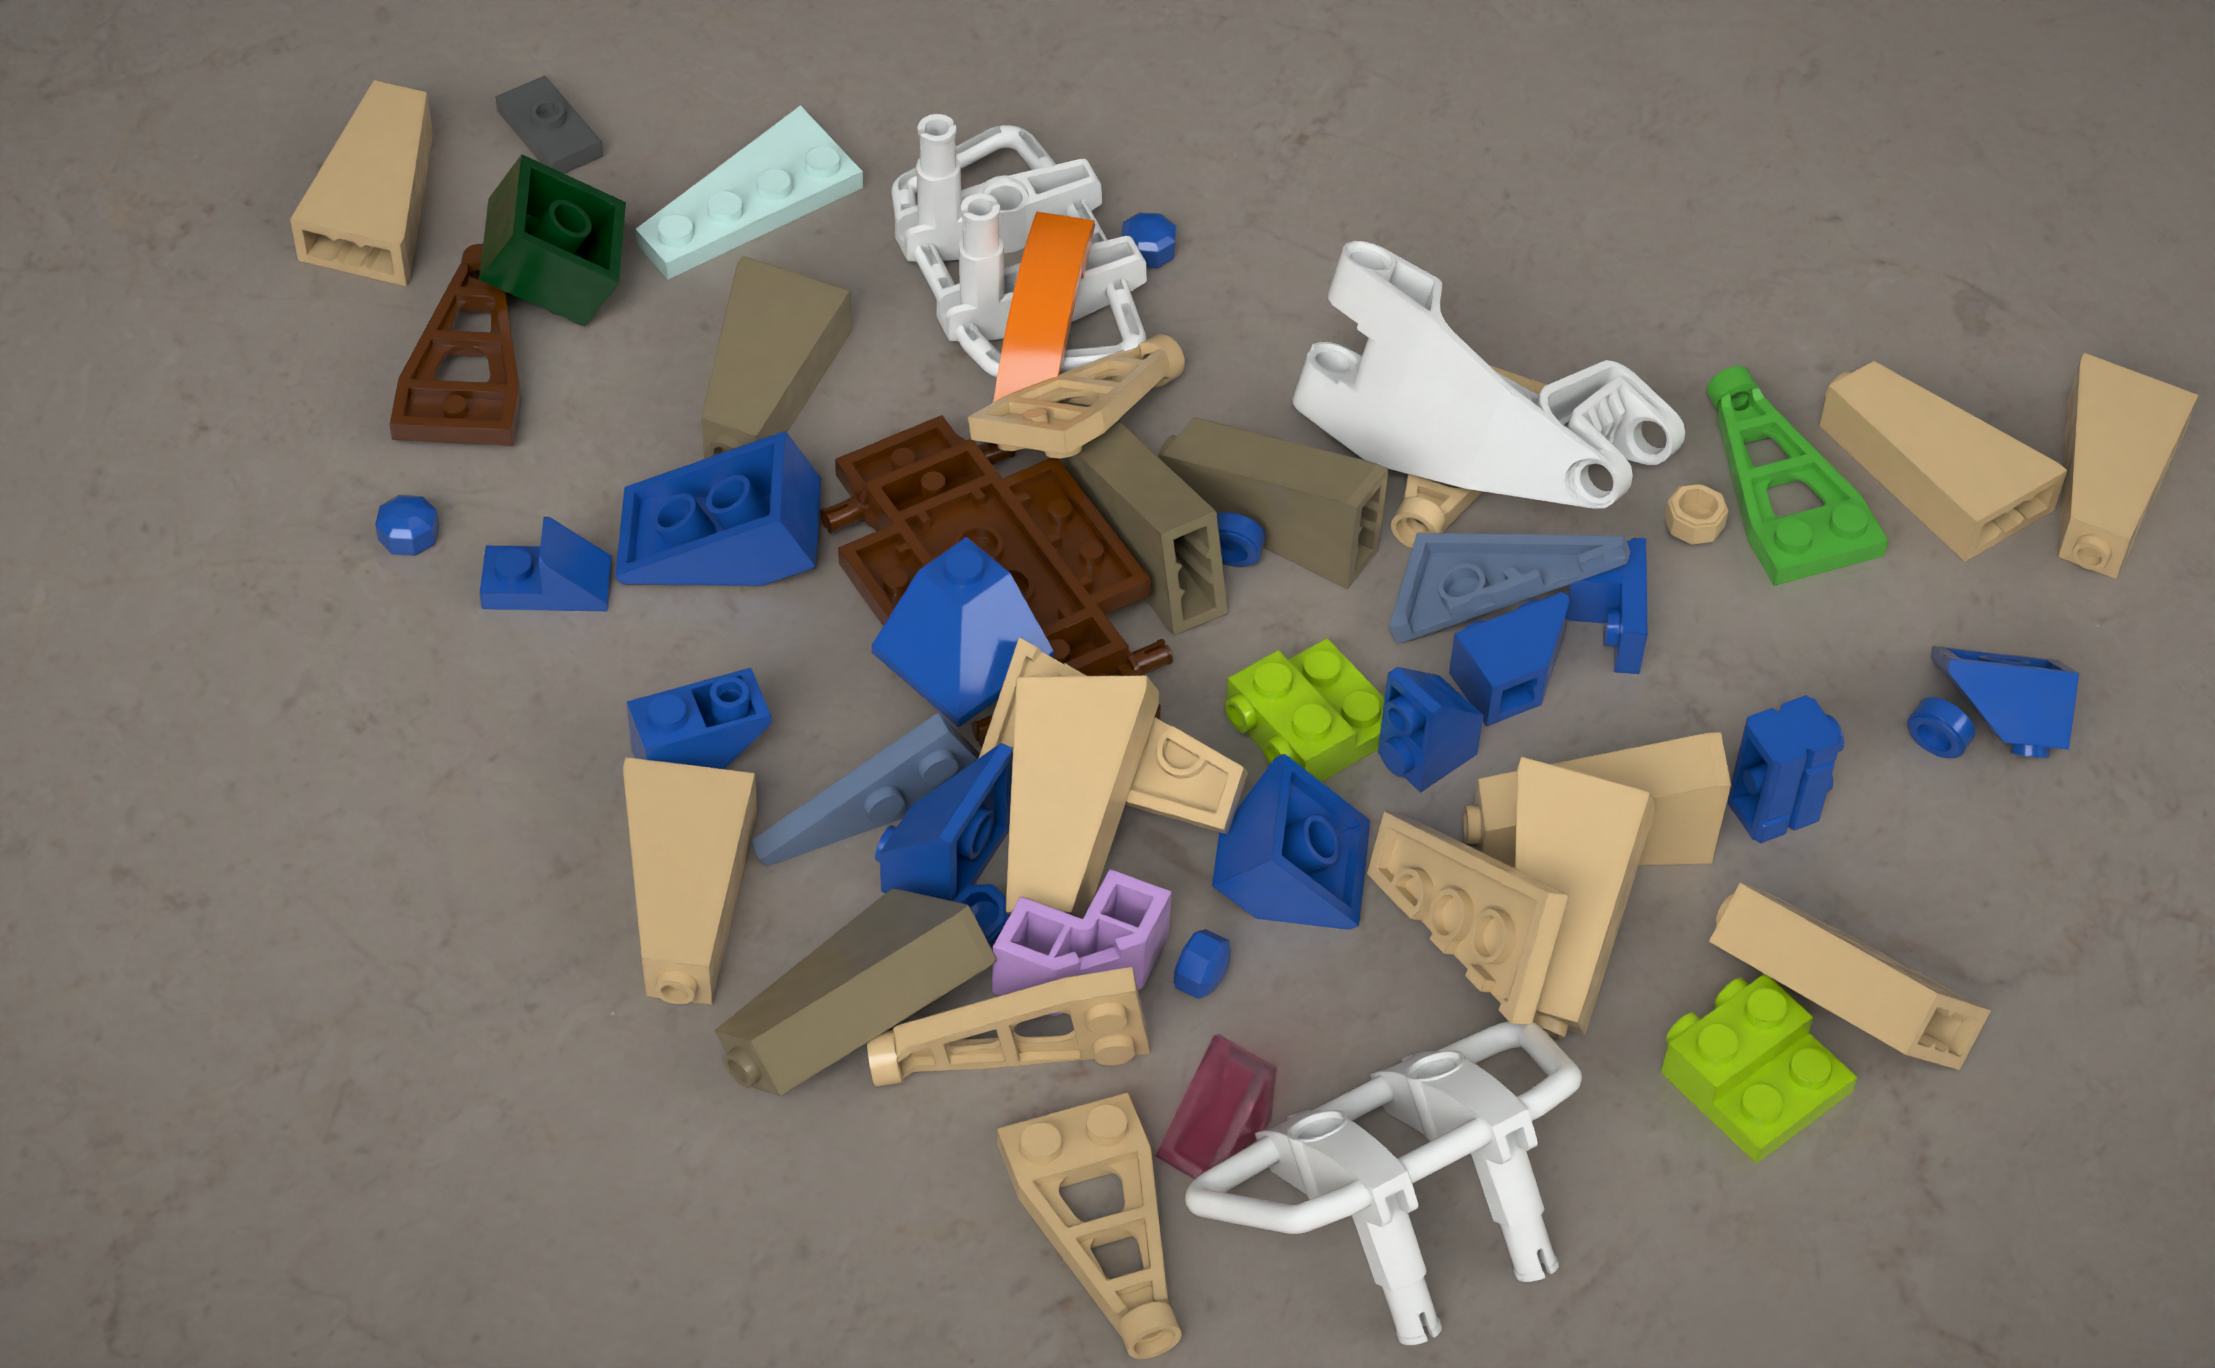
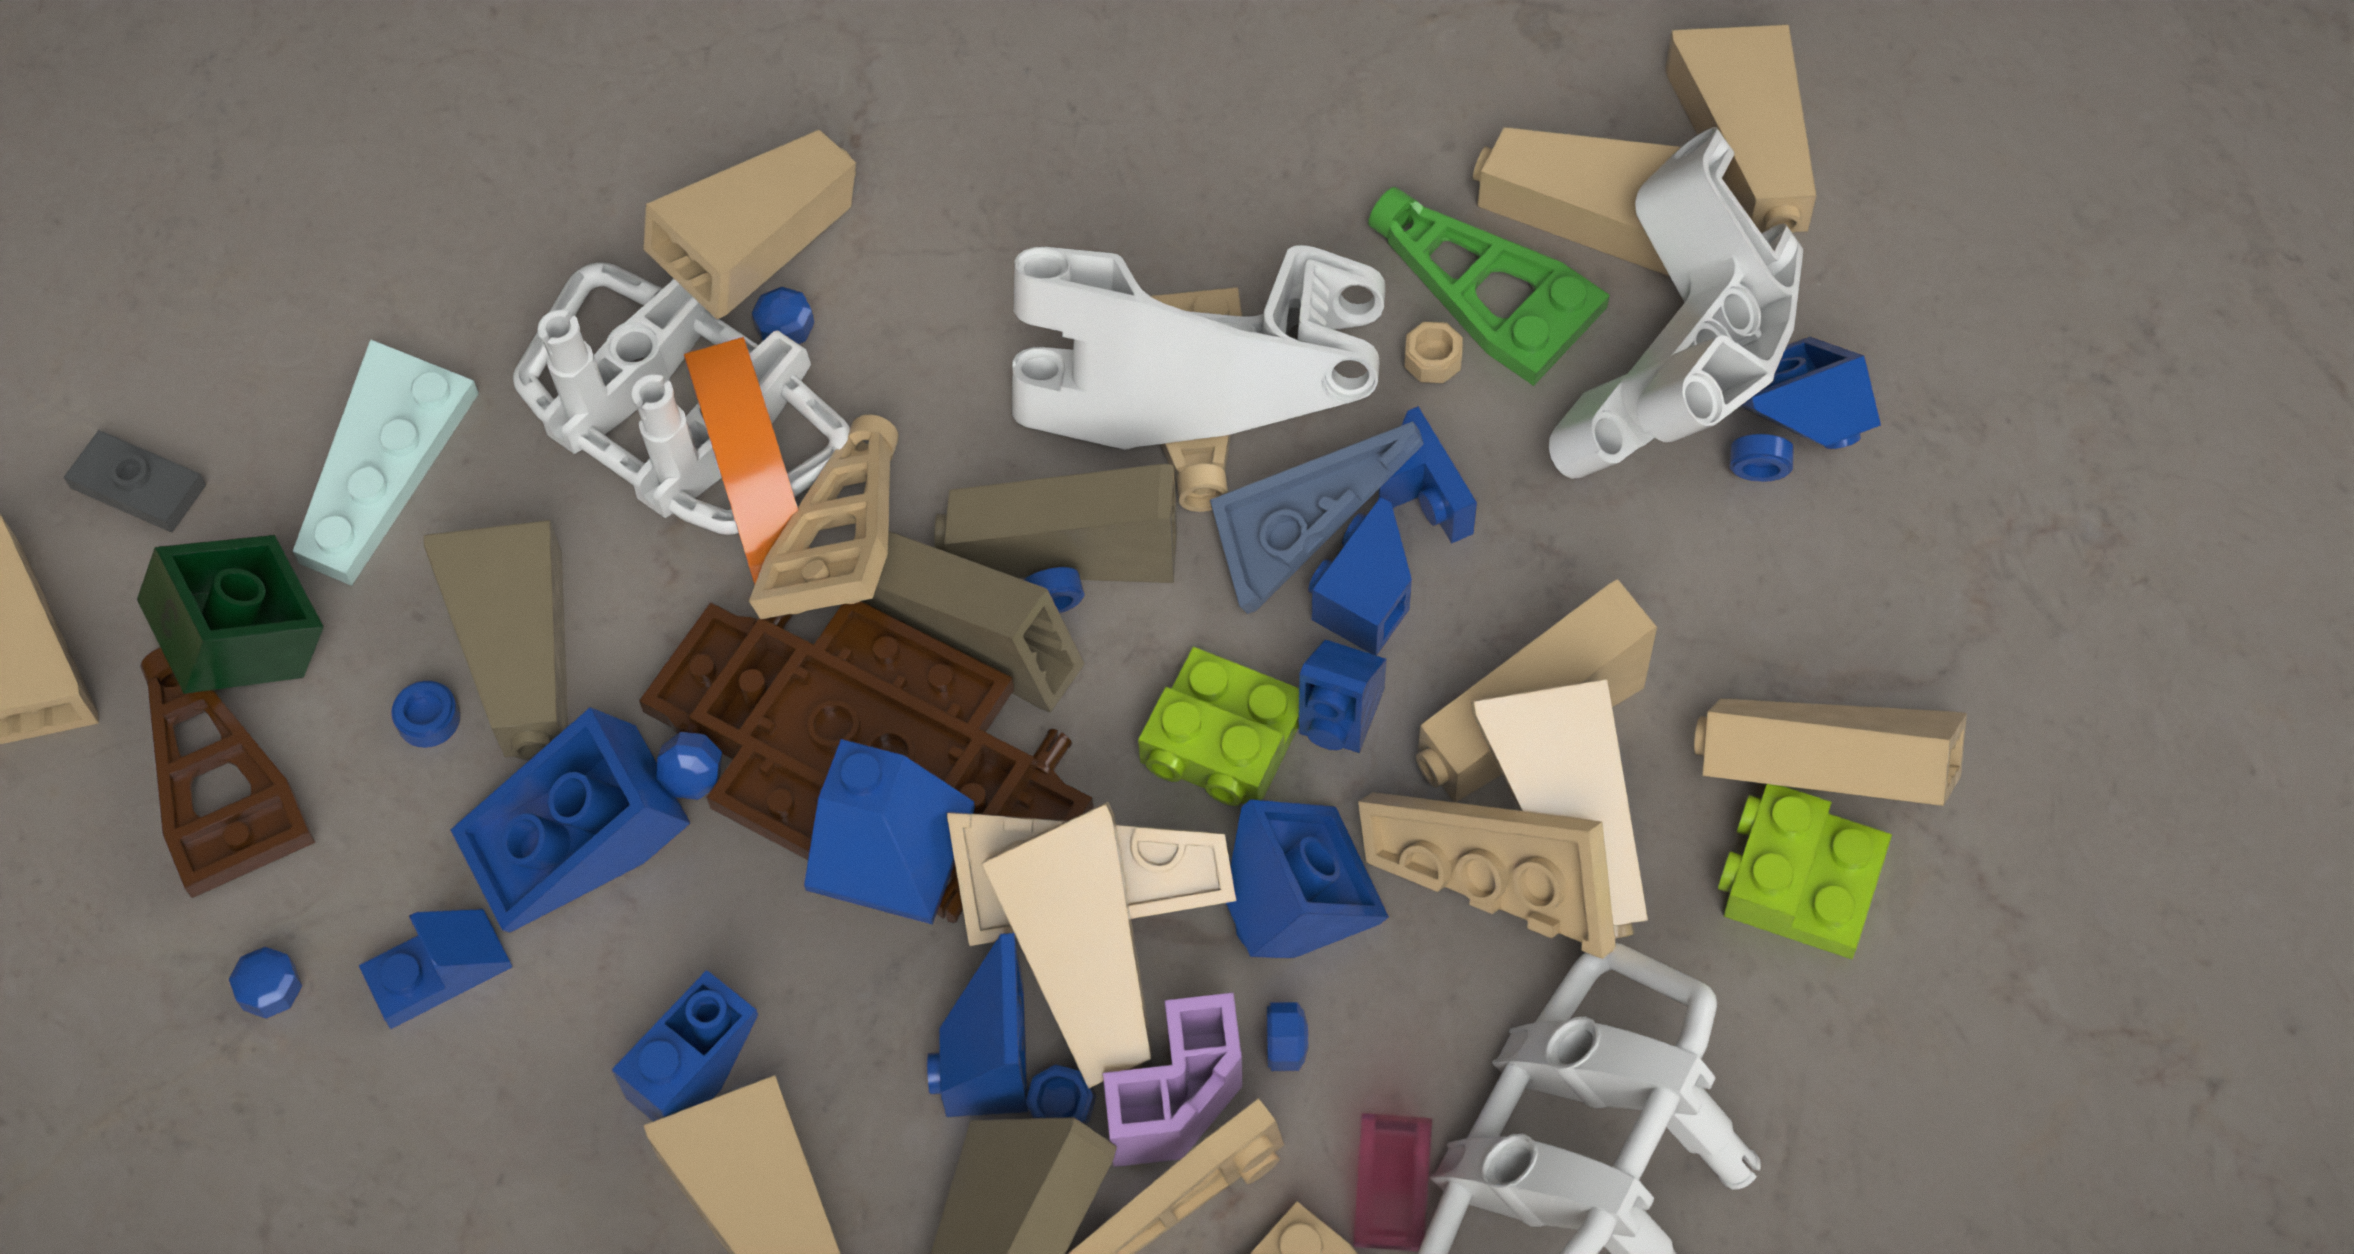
camera: 25 degrees left, 10 degrees up
(661, 395) = (426, 714): none -> blue tile
(840, 518) = (689, 765): none -> blue tile
(871, 793) = (894, 1028): sand blue wing -> none
(1166, 144) = (749, 219): none -> tan slope
(1784, 768) = (1673, 569): blue brick -> none
(1995, 579) = (1722, 340): none -> white piece

